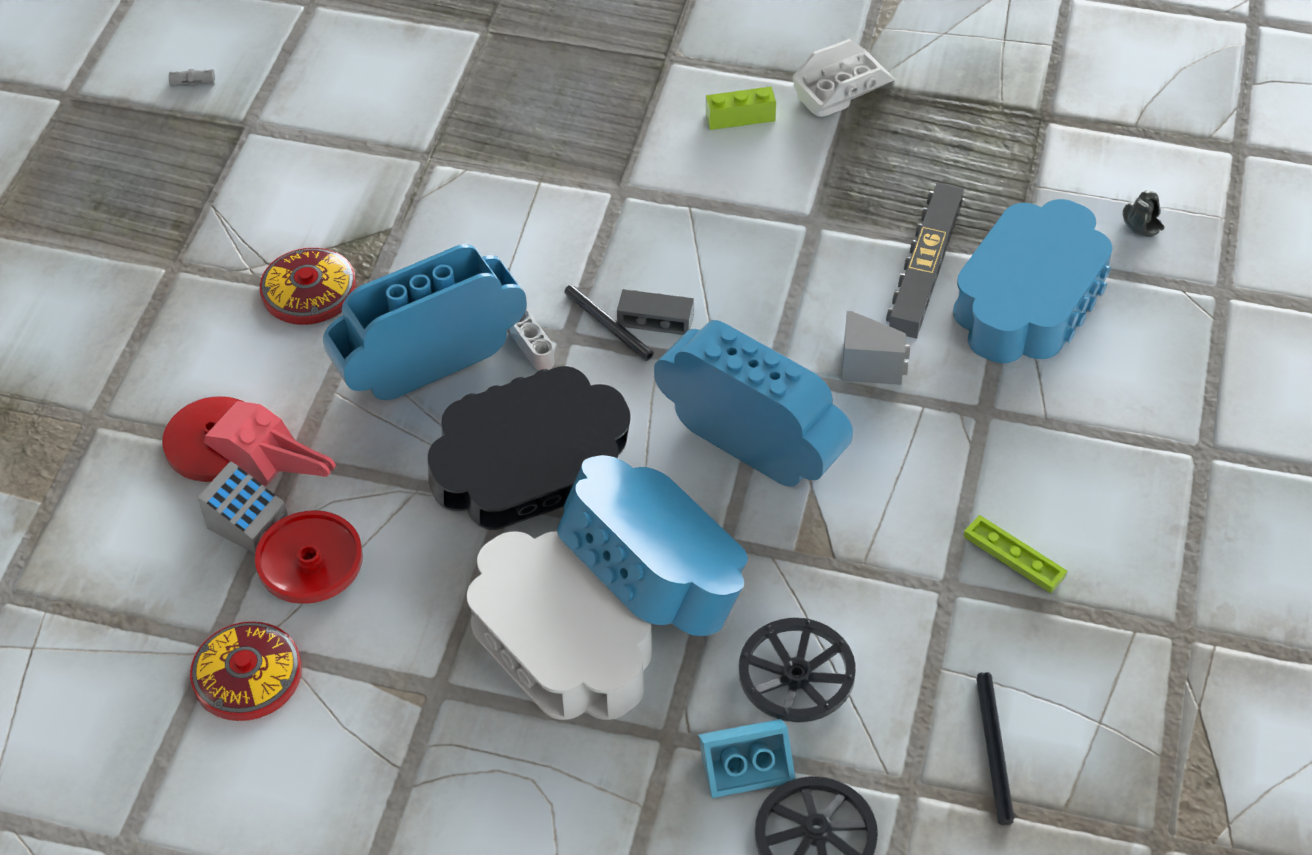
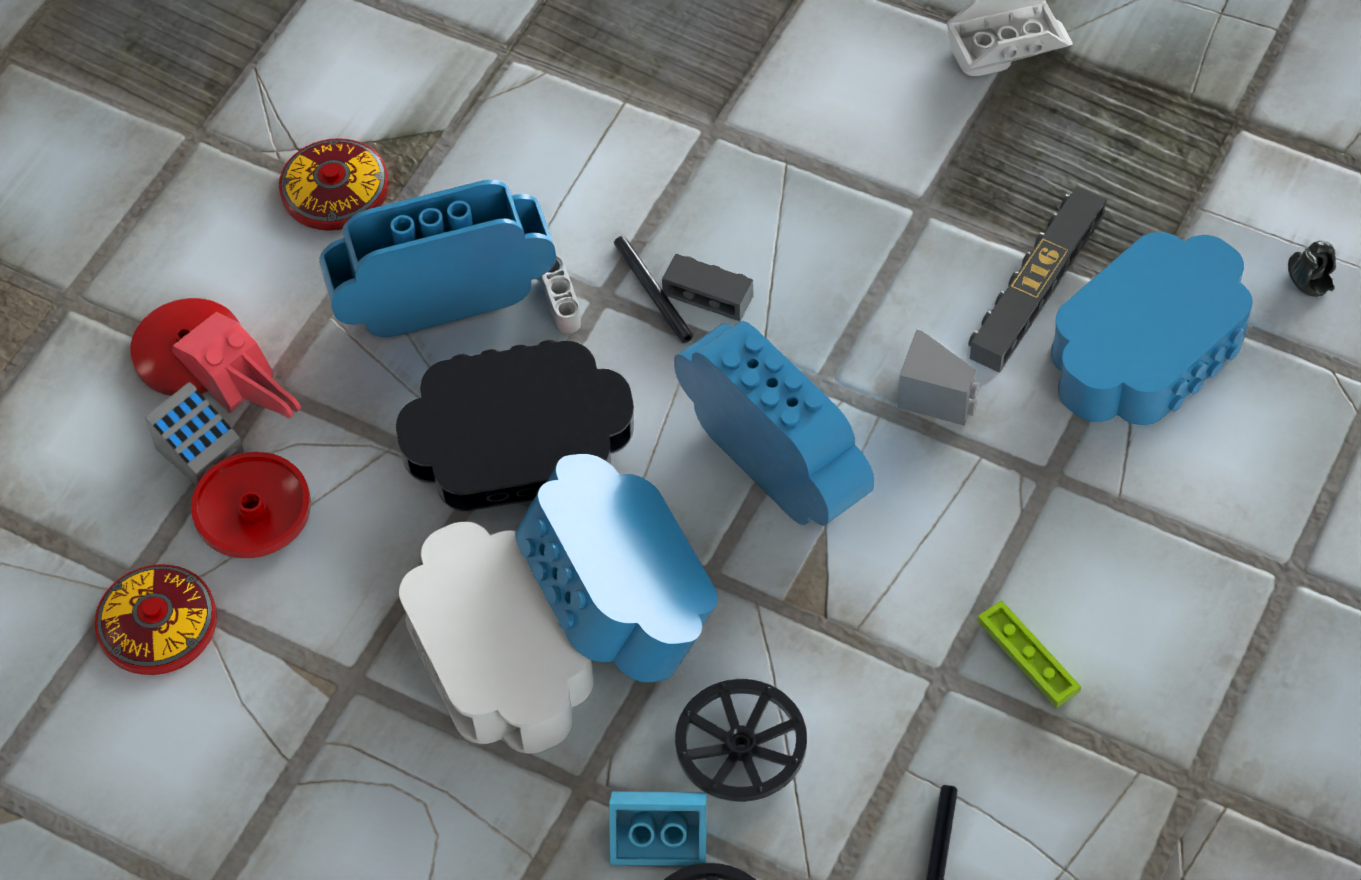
camera: 15 degrees right, 5 degrees up
(740, 108) = (878, 50): lime brick -> none

